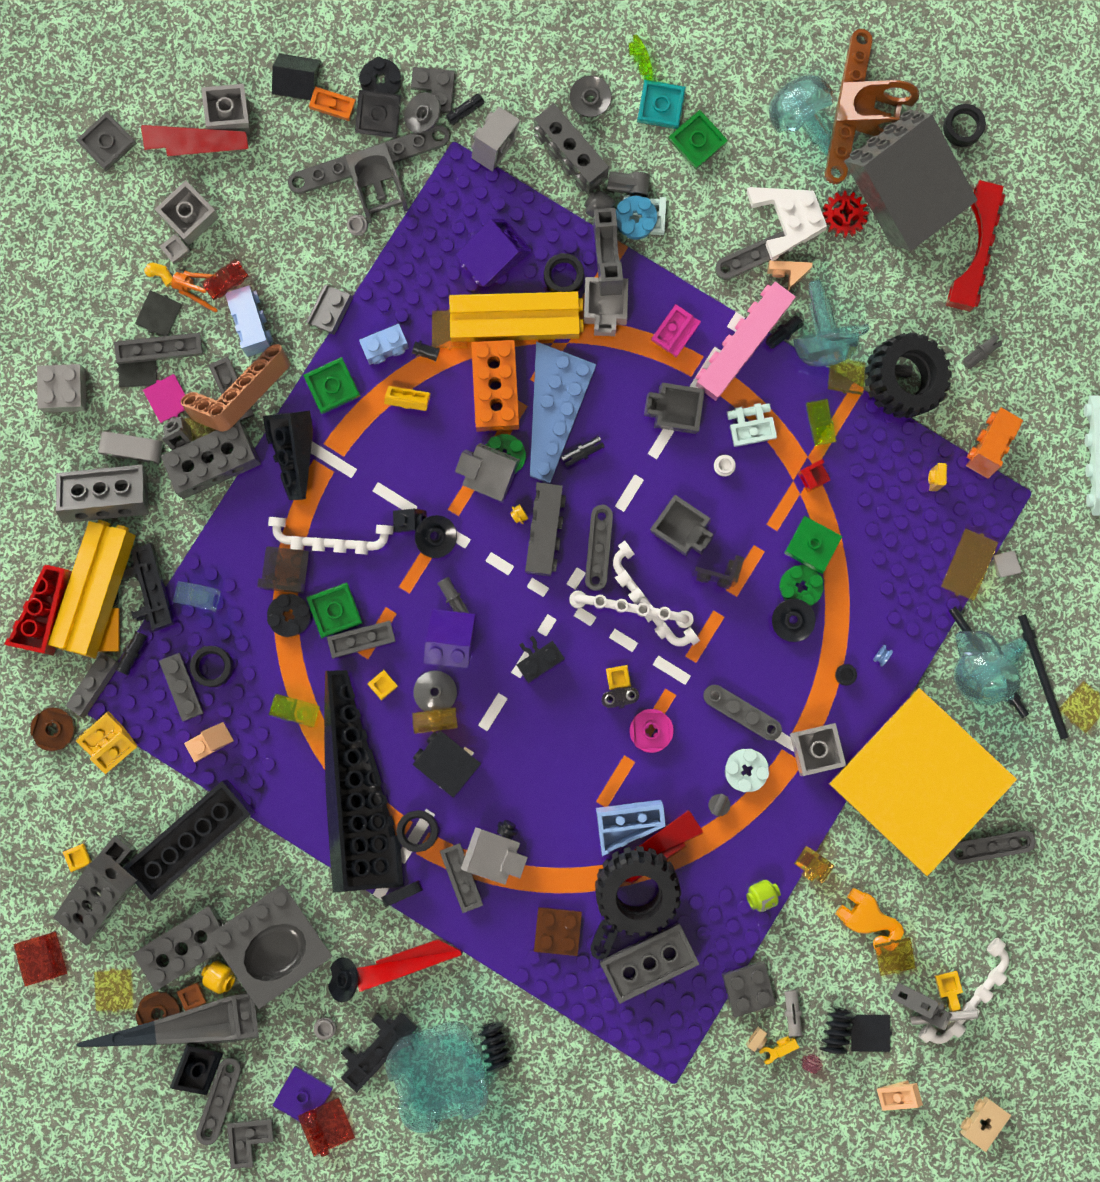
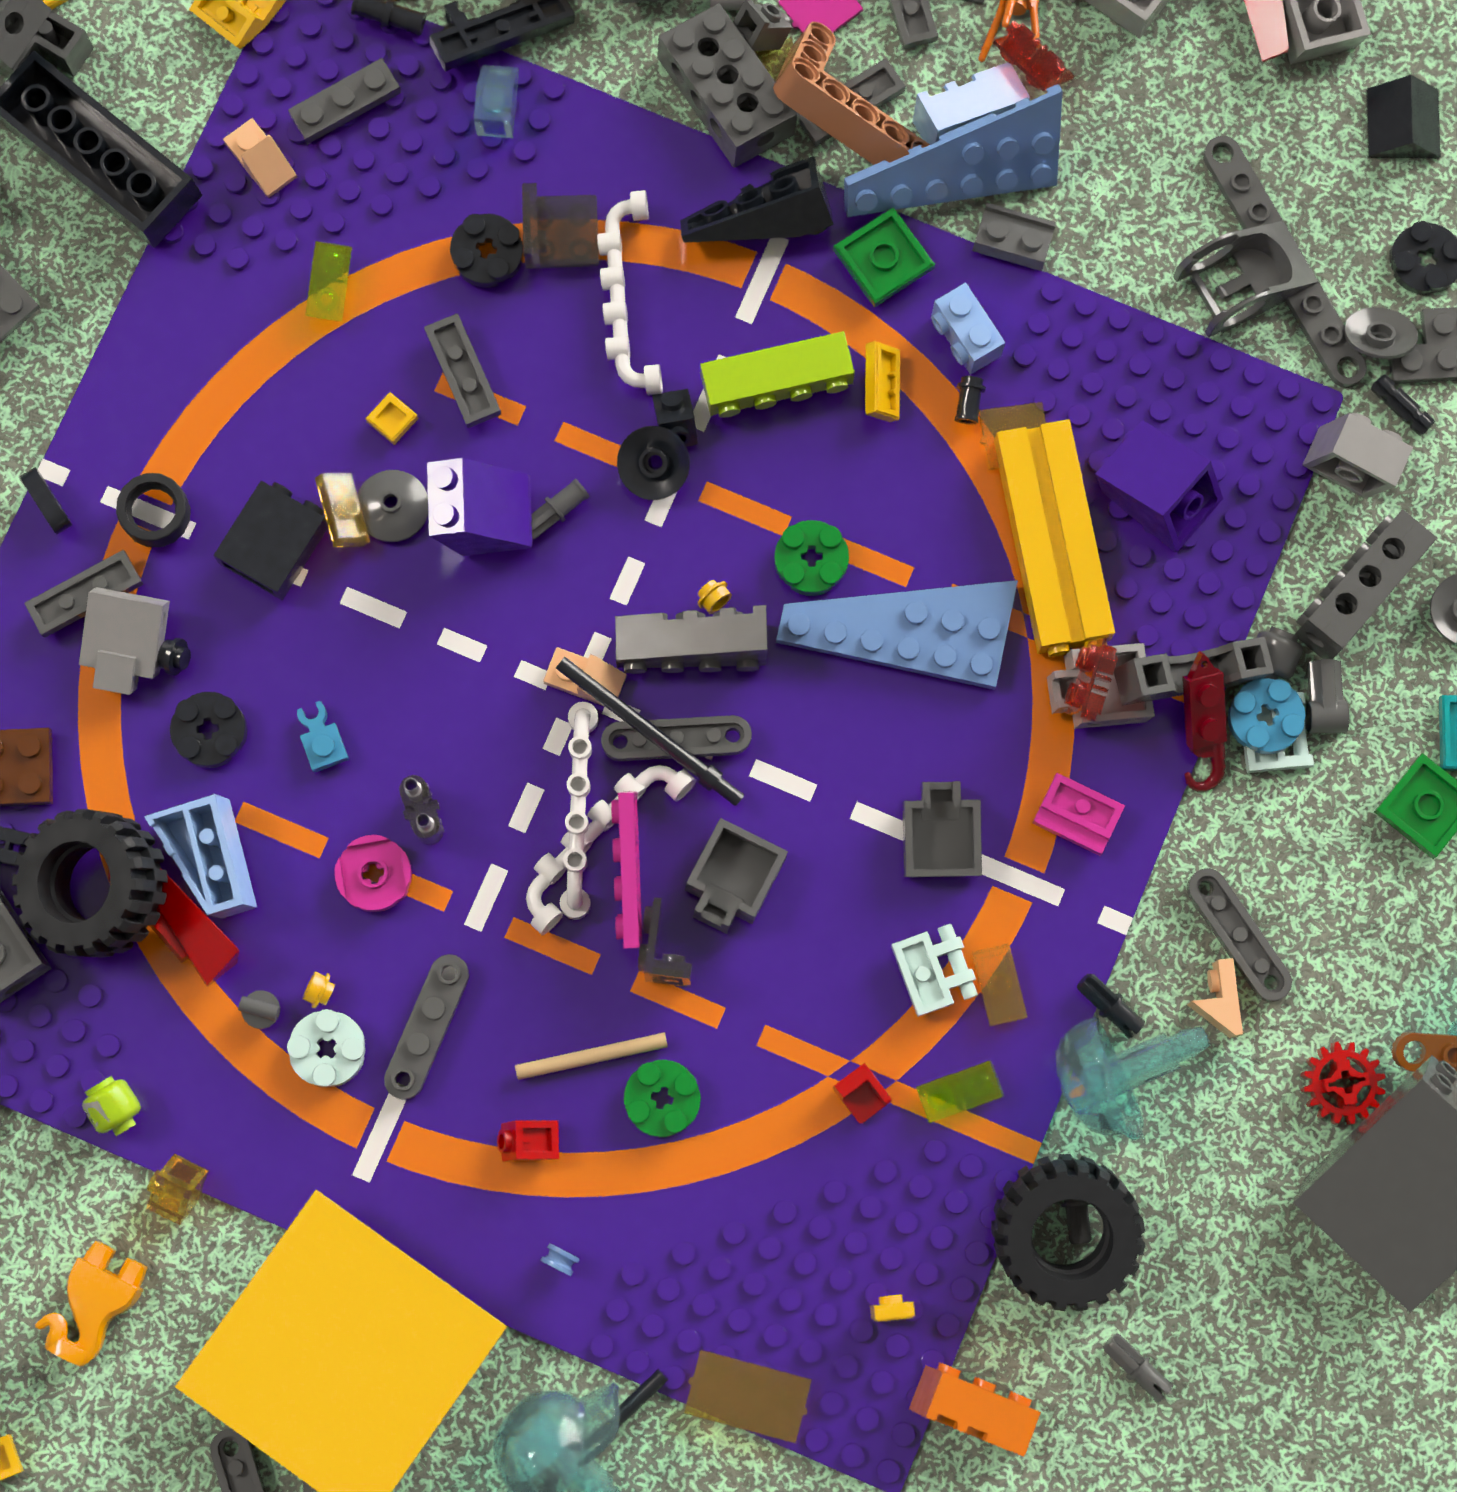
camera: 80 degrees right, 5 degrees down
(195, 661) = (377, 115): black tyre -> none
(284, 327) = (973, 161): none -> medium blue wing
(332, 103) = (1367, 186): orange plate -> none
(334, 610) = (505, 320): green plate -> none
(357, 225) = (1166, 258): light grey plate -> none
(360, 829) = (168, 410): black wedge -> none
(378, 114) = (1365, 262): black plate -> none
(394, 457) = (777, 374): none -> lime brick
(483, 376) = (933, 498): orange brick -> none
(487, 471) = (778, 529): dark grey piece -> none
(539, 662) = (465, 666): black brick -> none
(555, 595) = (598, 669): none -> light nougat slope
(562, 807) = (192, 714): none -> black plate
(563, 258) = (1163, 589): black tyre -> none
(571, 750) = (322, 743): none -> dark azure plate
(582, 451) = (839, 686): black pin -> none
(613, 314) = (1093, 658): none -> clear red hinge
(618, 677) = (458, 805): yellow tile -> none
(623, 533) = (708, 776): none -> black bar
(634, 250) = (1205, 719): none -> dark red plate
(681, 585) = (627, 886): none -> dark pink plate
(713, 770) = (318, 989): none -> yellow plate
(724, 465) = (855, 933): white plate -> none
(745, 341) = (1081, 936): bright pink brick -> none
(764, 391) = (999, 985): none -> clear yellow plate
(770, 606) = (591, 1056): none -> tan bar
(793, 631) = (581, 1088): black dish -> none
(798, 215) = (1327, 999): white wing -> none
(813, 544) = (738, 1108): green plate -> none
(815, 663) = (529, 1140): none -> red bracket
(817, 749) = (376, 1164): light grey brick -> none
(846, 674) = (517, 1199): black plate -> none
(847, 377) = (1049, 1127): clear yellow piece -> none
(895, 956) = (34, 1355): clear yellow piece -> none
(964, 290) = (1409, 1335): red arch -> none
(1006, 564) = (759, 1465): light grey slope -> none

